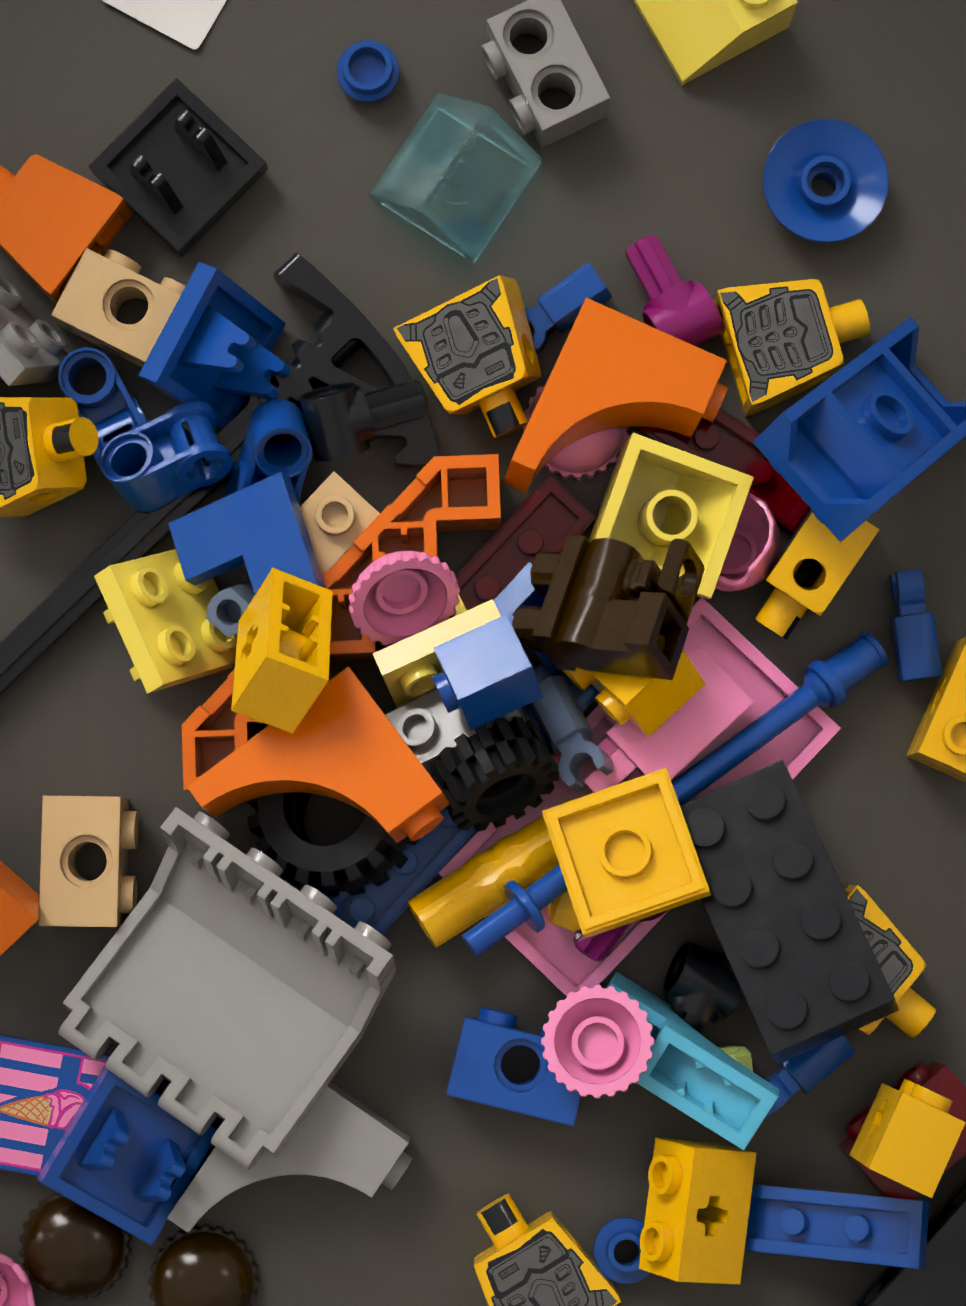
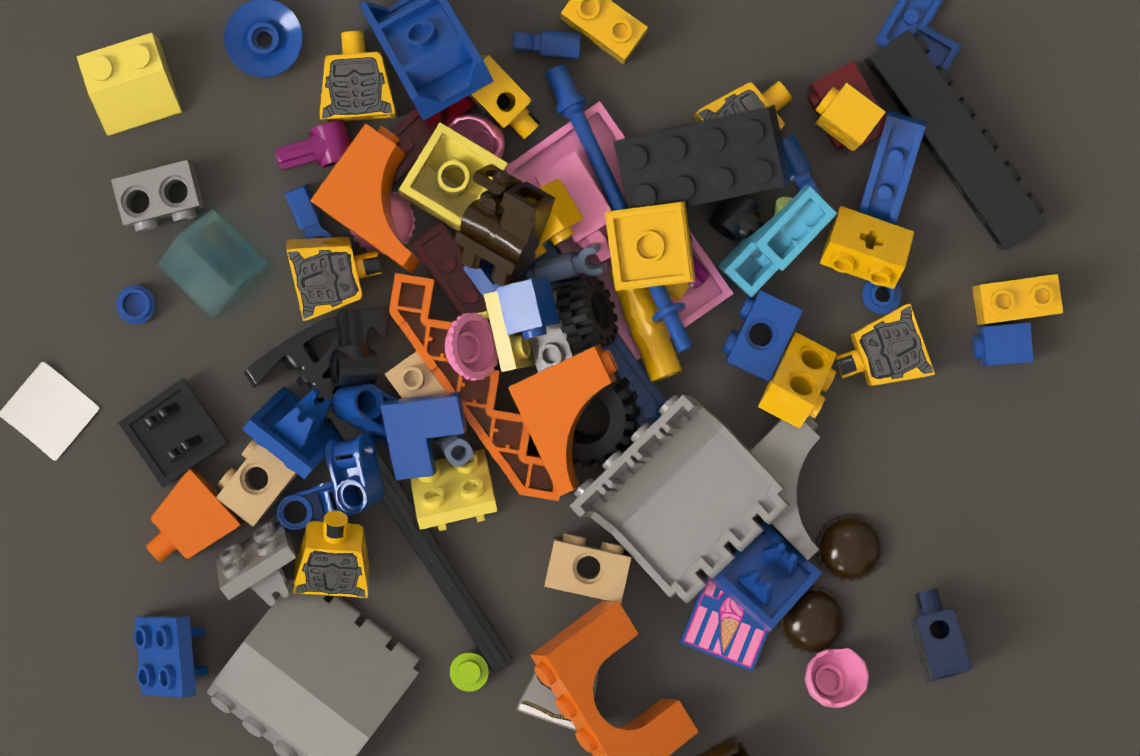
camera: 80 degrees left, 5 degrees up
(282, 651) = (491, 423): yellow brick -> none
(456, 1144) = (799, 380): none -> yellow brick
(597, 1041) = (756, 285): bright pink hat -> none

